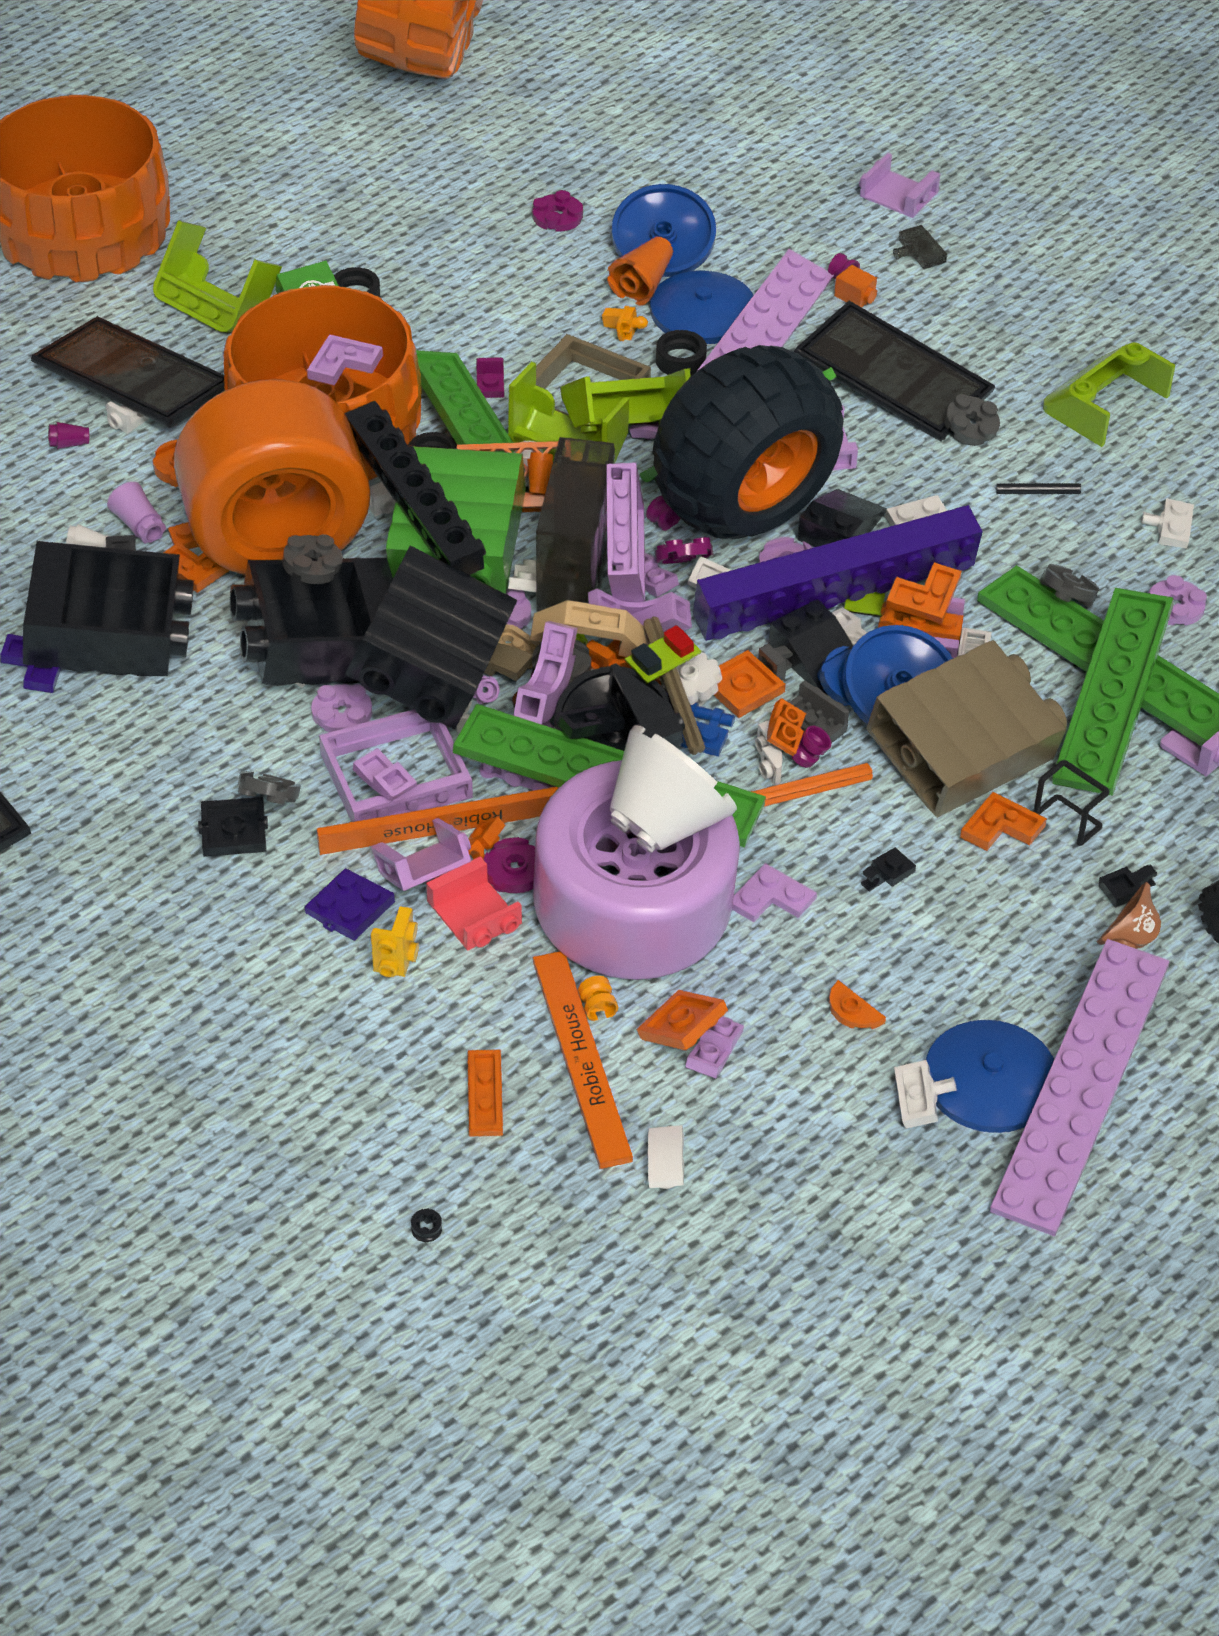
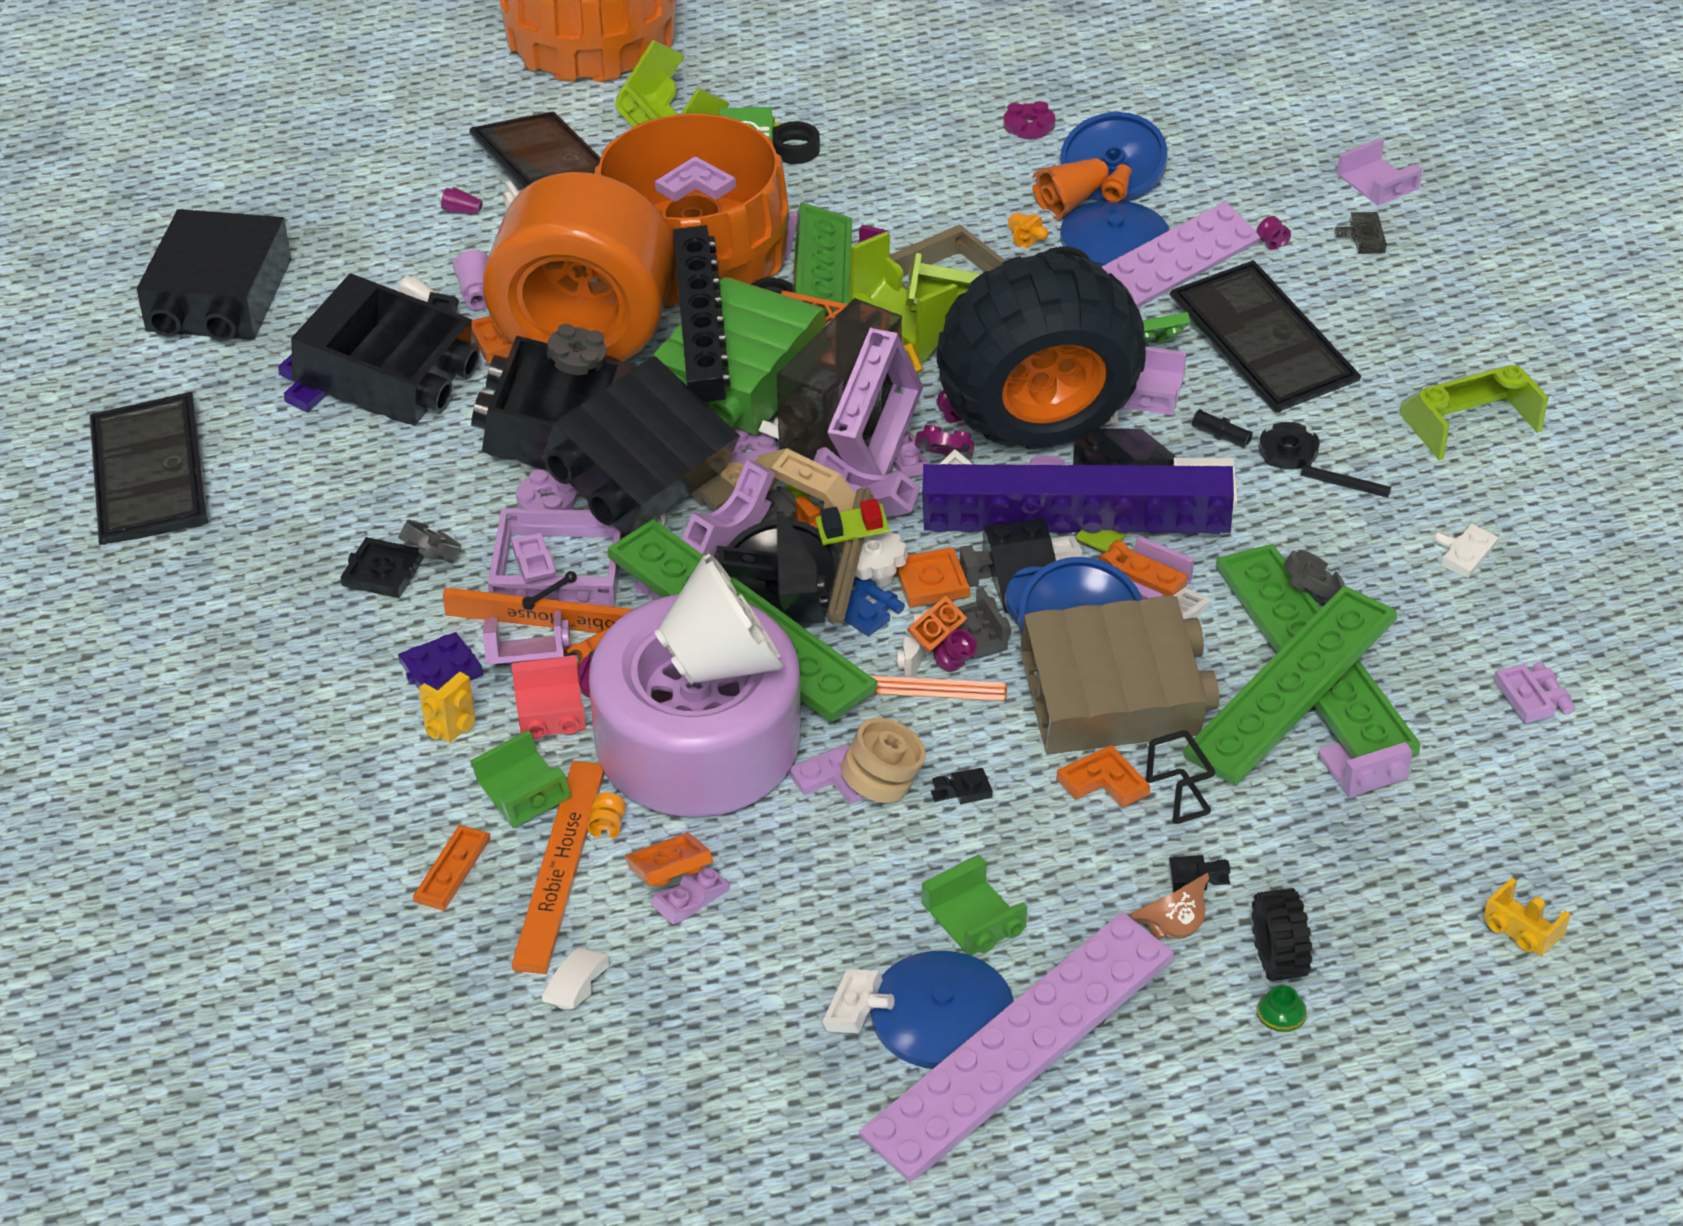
camera: 25 degrees right, 5 degrees down
(406, 818) = (529, 602): none -> black hinge
(428, 1216) = (321, 975): black bush -> none
(492, 690) = (683, 506): lavender plate -> none
(500, 992) = (520, 780): none -> bright green panel
(683, 257) = (1116, 185): none -> orange cone
(816, 868) = (883, 760): none -> tan wheel
(852, 1009) = (844, 903): orange plate -> none
(856, 286) = (1274, 251): orange brick -> none
(908, 469) = (1222, 428): none -> black pin
(926, 600) = (1155, 548): orange plate -> none
(963, 978) = (971, 907): none -> bright green panel
(981, 411) = (1320, 388): dark grey plate -> none
(986, 473) = (1276, 453): none -> black plate
(1191, 597) = (1426, 610): lavender plate -> none

